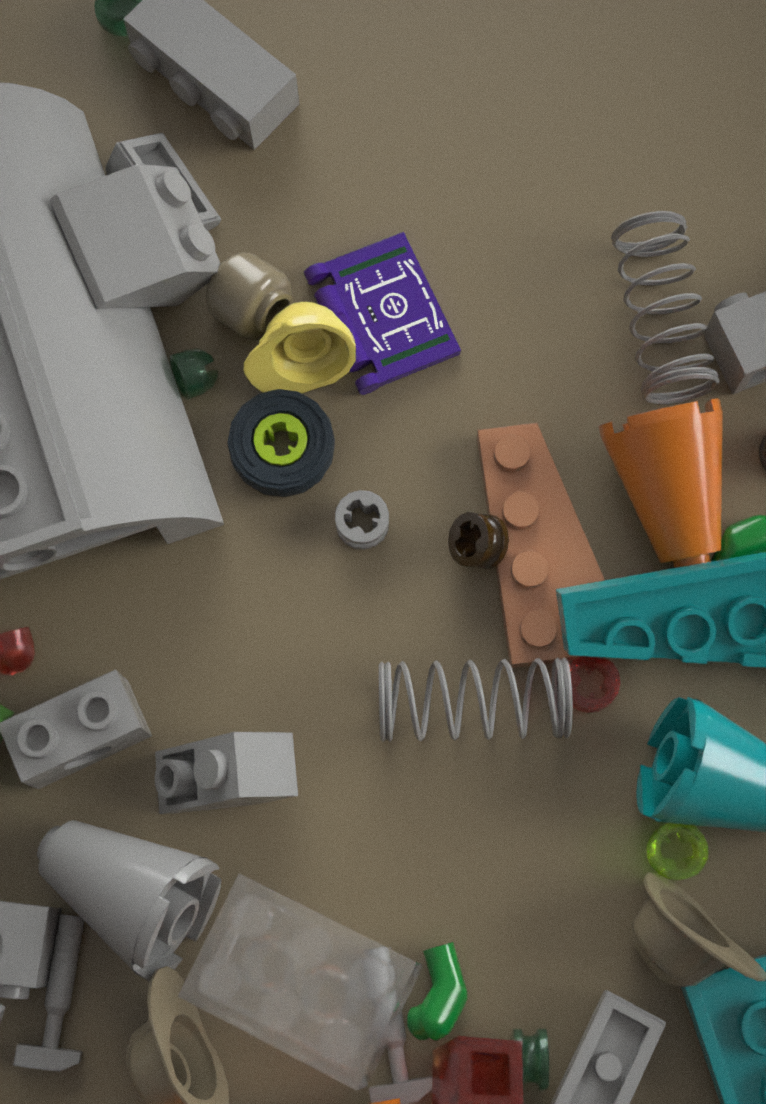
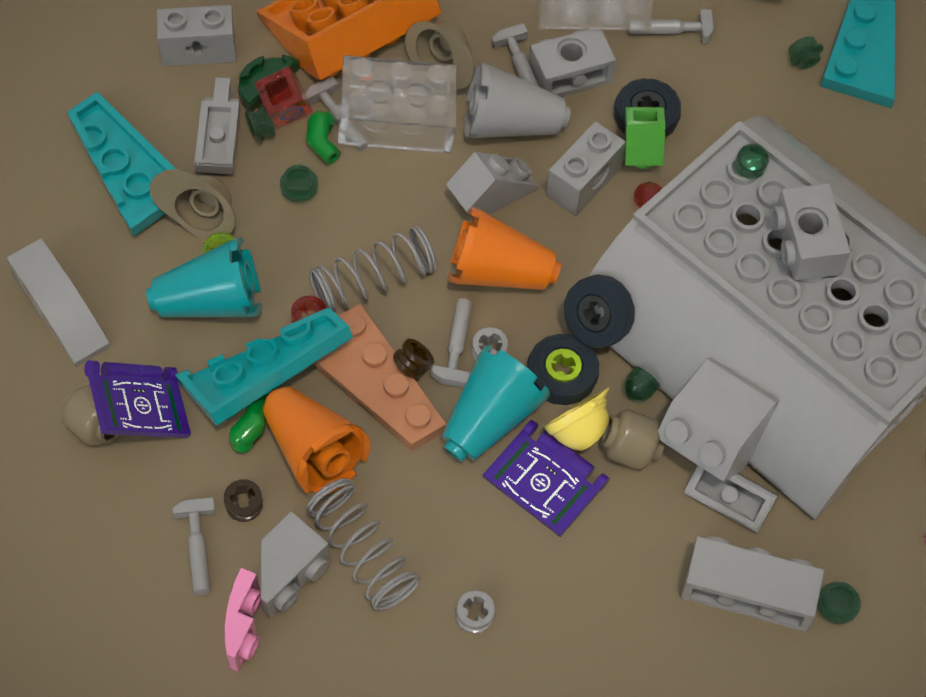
camera: 150 degrees right, 15 degrees down
(197, 465) = (617, 308): none -> black bush
(287, 635) = (500, 256): none -> orange cone
(406, 544) = (450, 375): none -> light grey piece
(407, 415) = (491, 404): none -> teal cone
(512, 919) = (299, 183): none -> clear green plate
(557, 166) = (488, 610): none -> light grey bush

